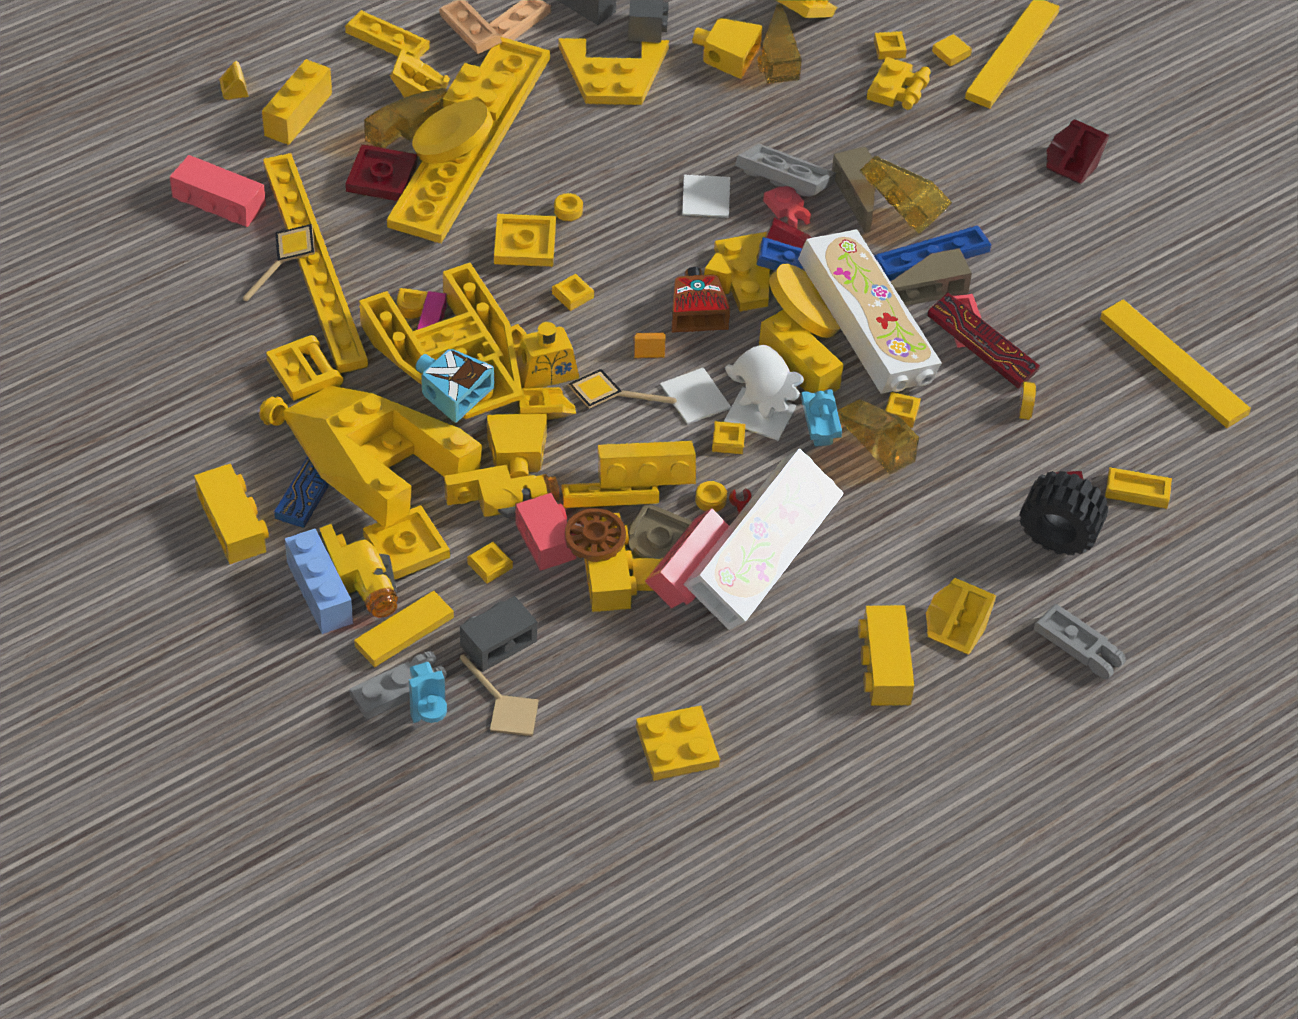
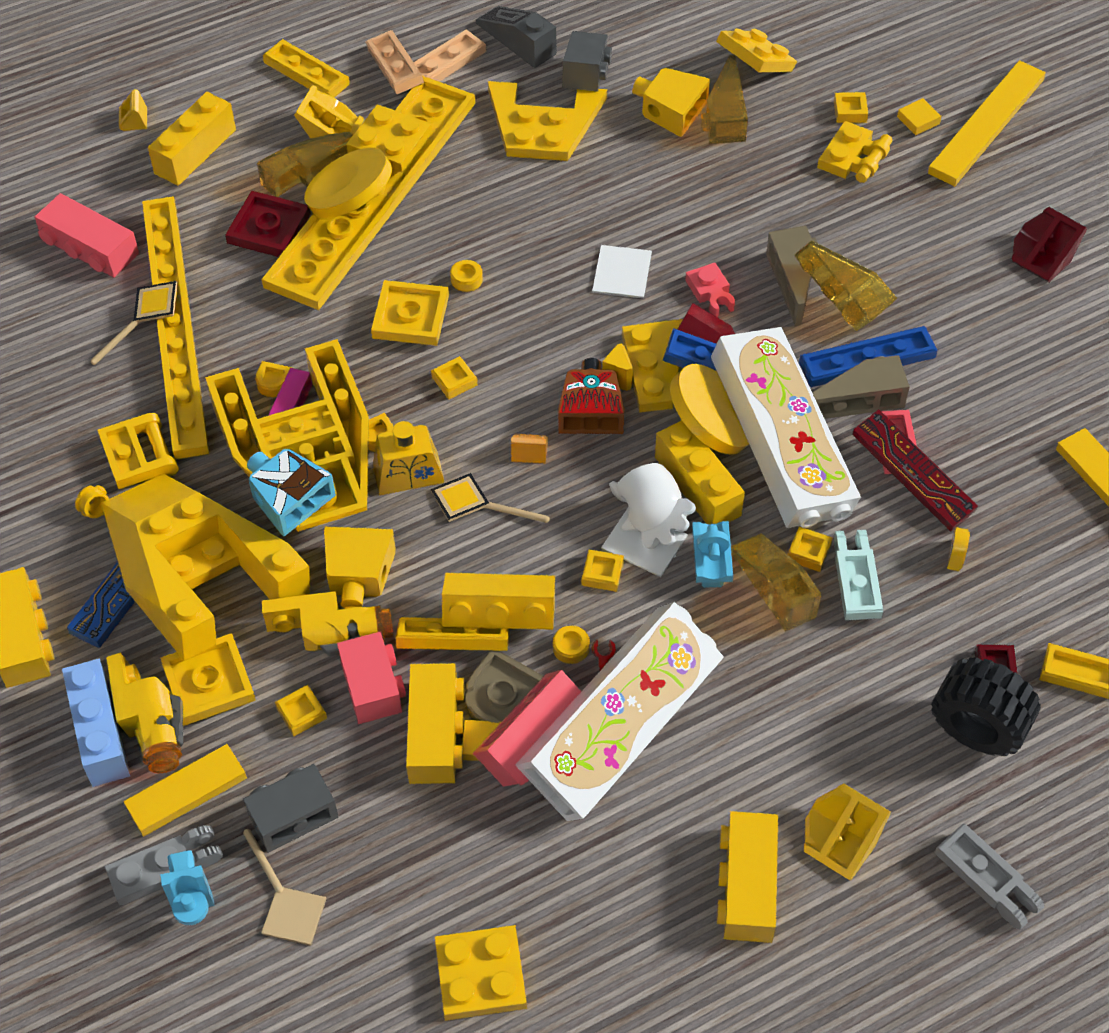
camera: 10 degrees right, 5 degrees up
(547, 401) = (397, 511): yellow slope -> none
(595, 534) = (421, 691): dark orange wheel -> none
(695, 395) = (573, 514): white window -> none
(785, 170) = (712, 247): light grey plate -> none
(945, 428) = (857, 578): none -> light aqua hinge

